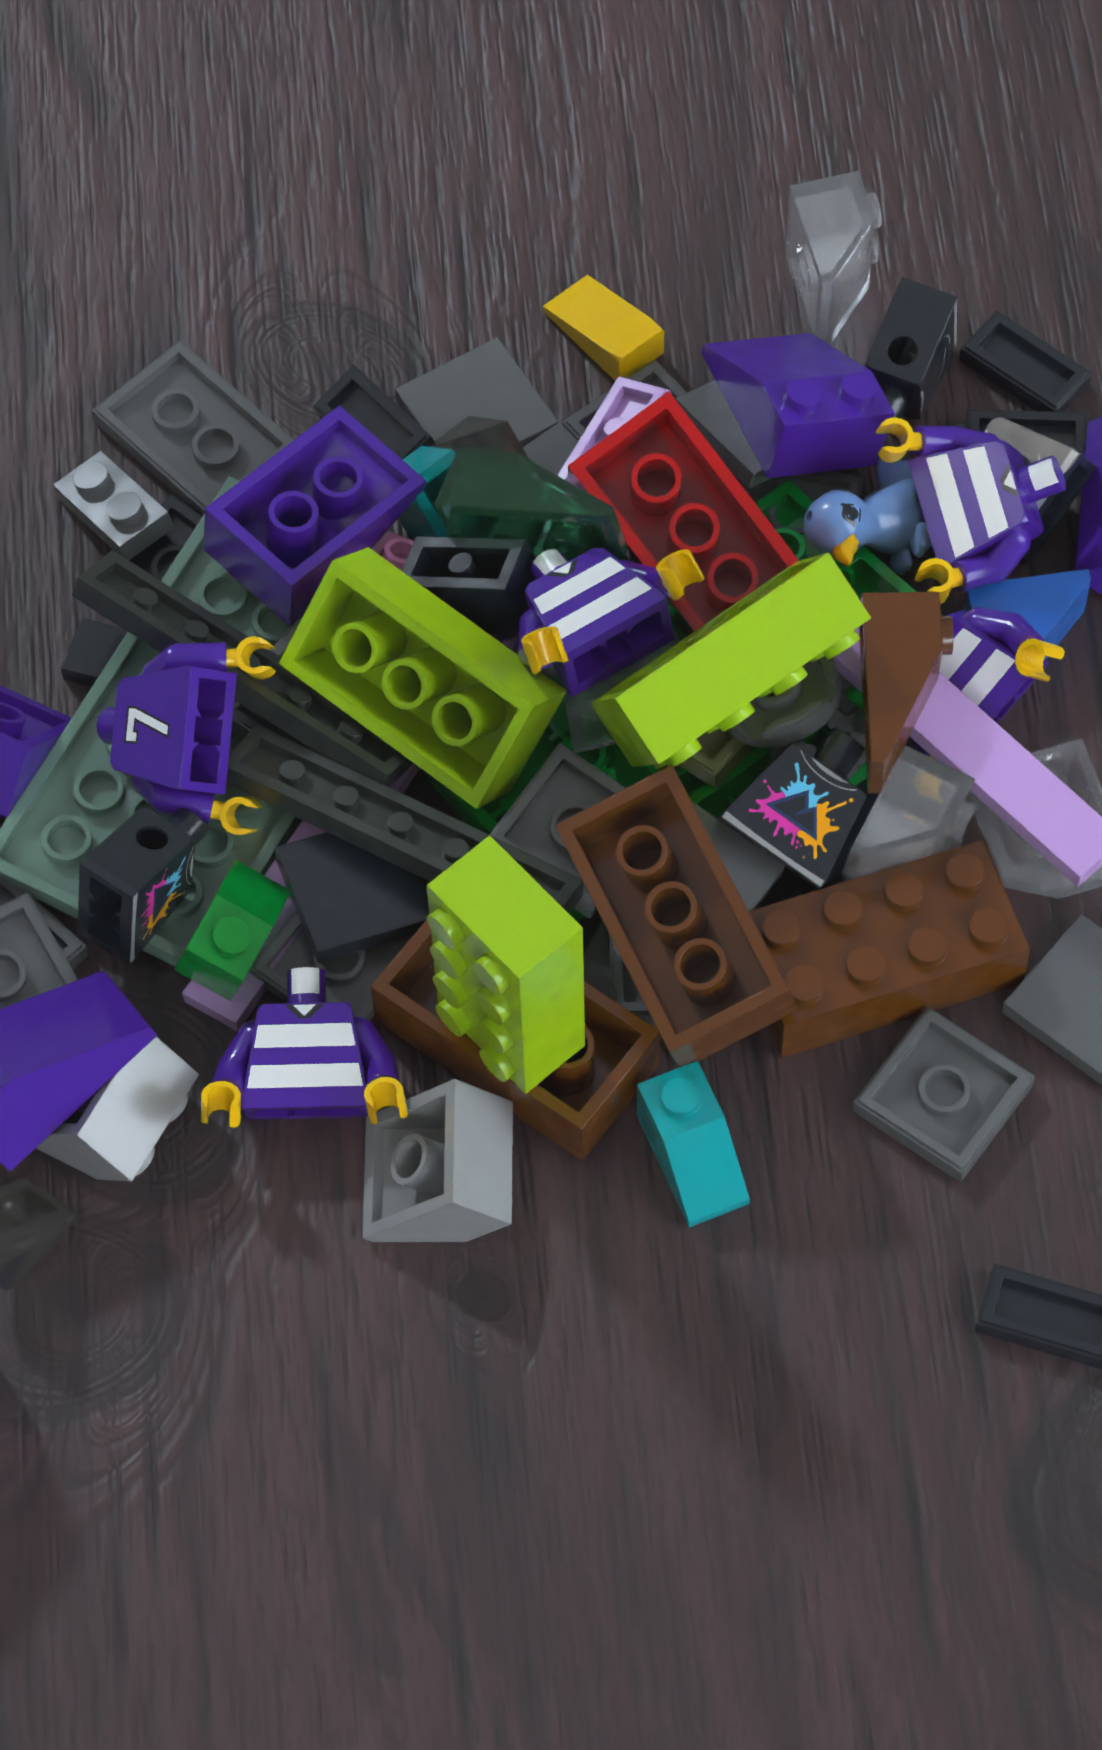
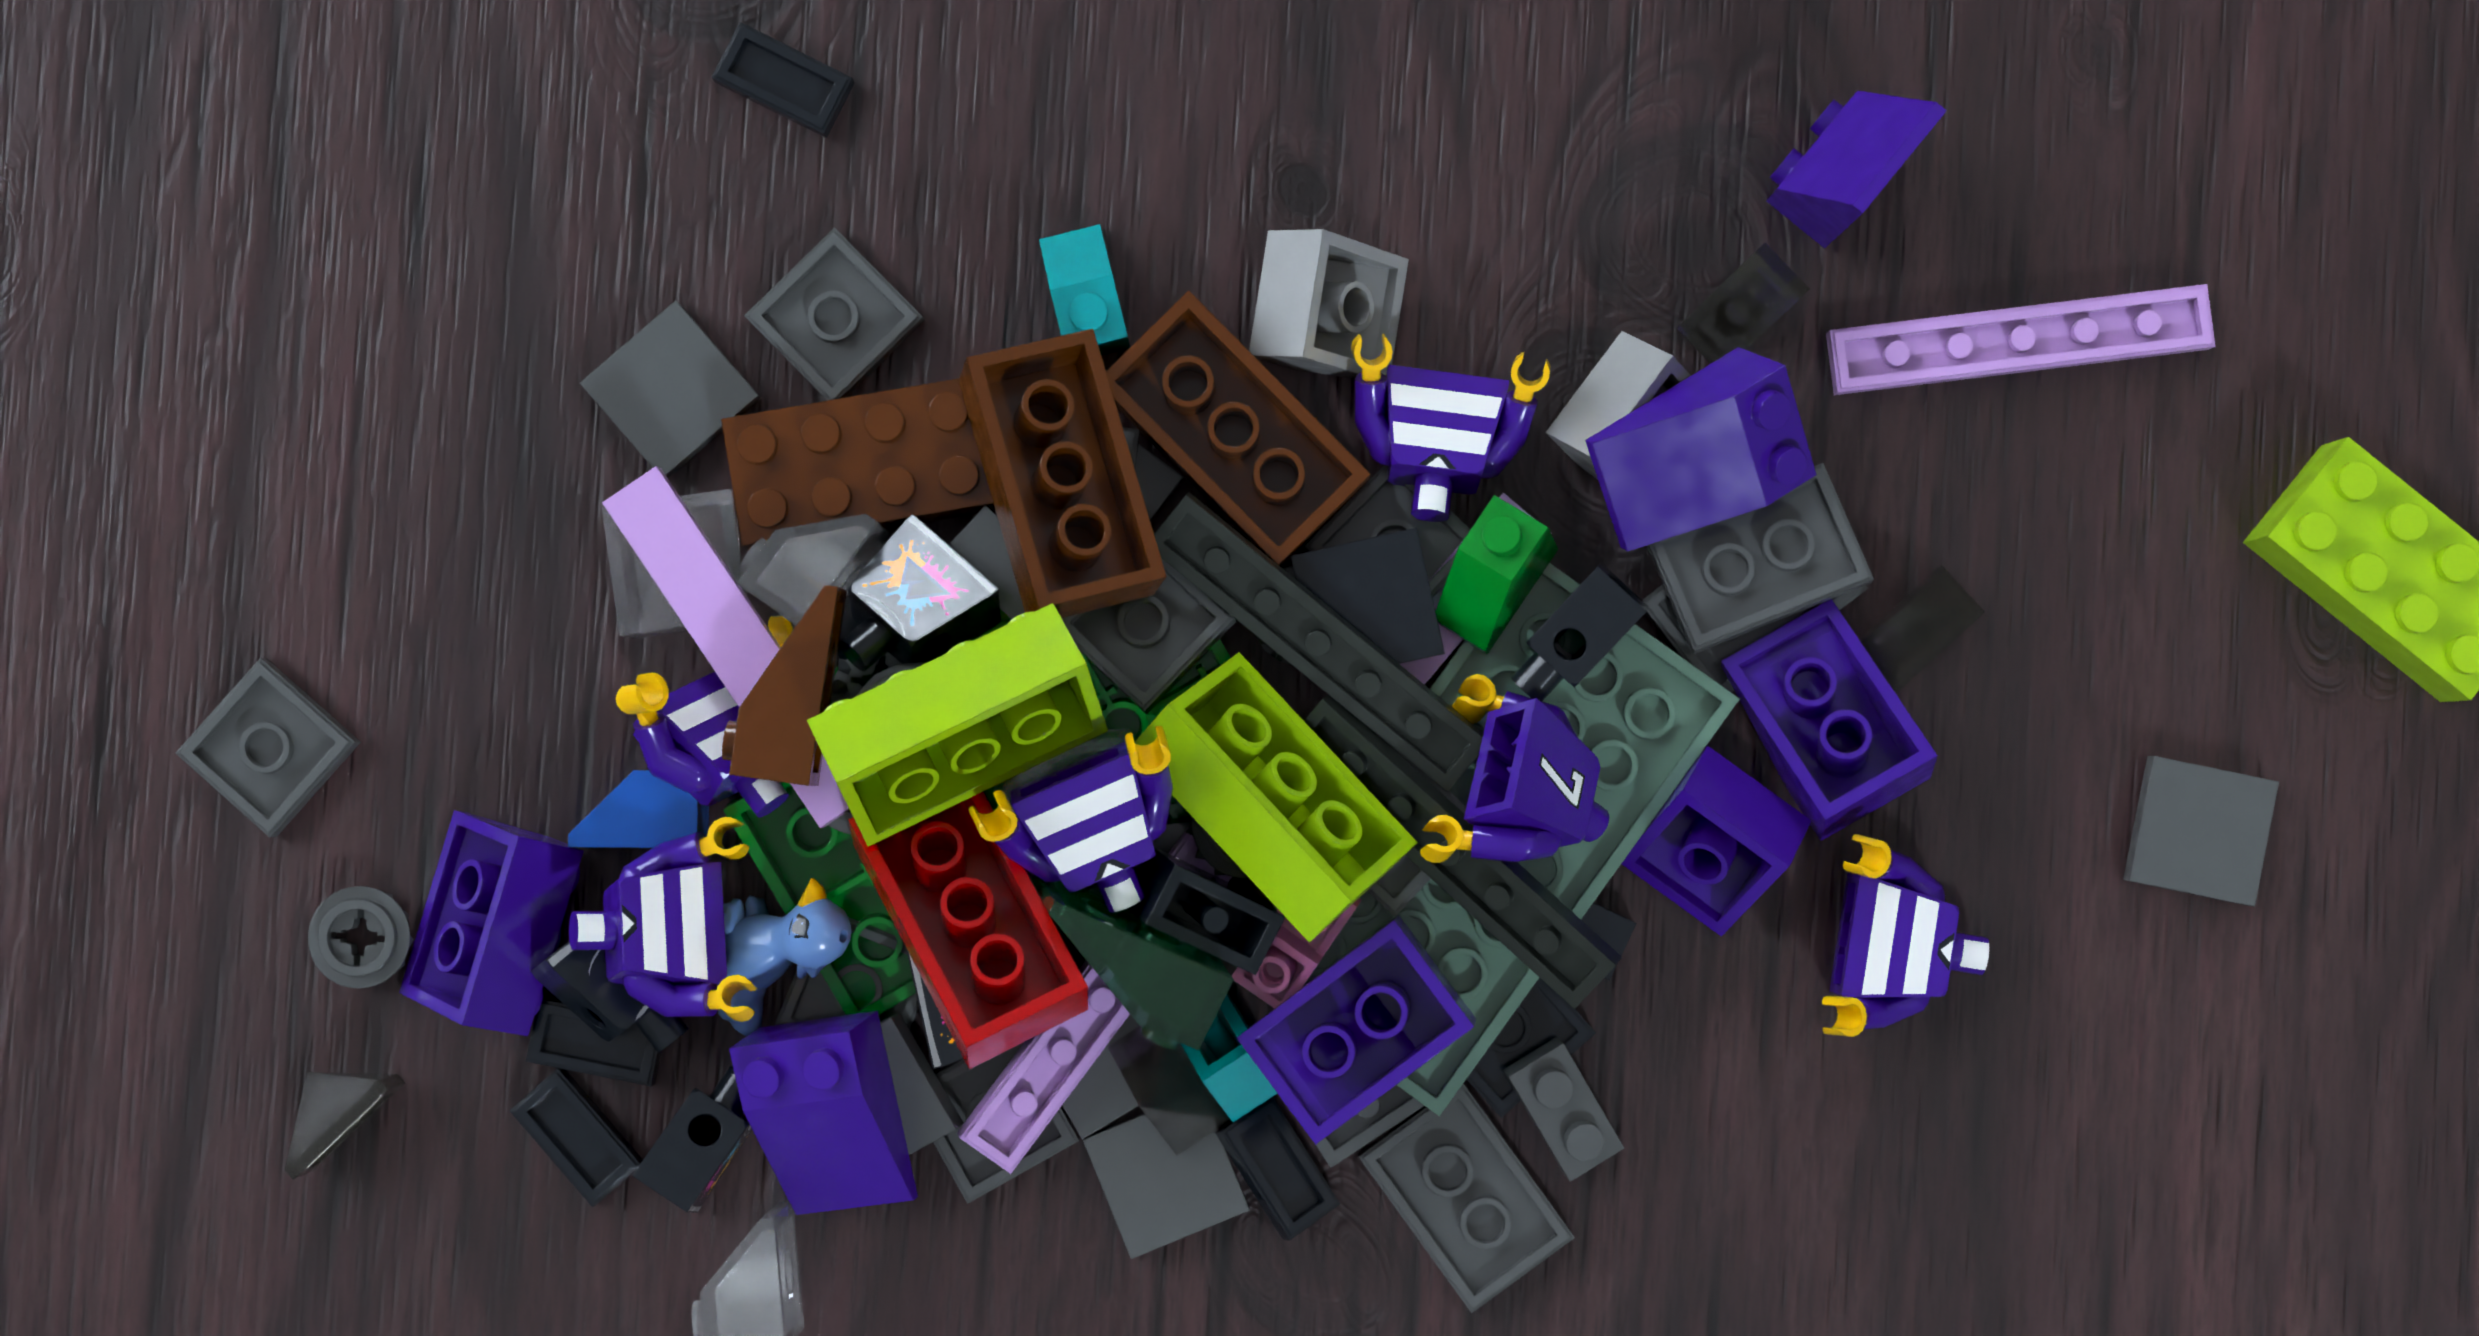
camera: 170 degrees left, 25 degrees up
(506, 965) = (1241, 388): lime brick -> none
(607, 327) = (1014, 1260): yellow slope -> none

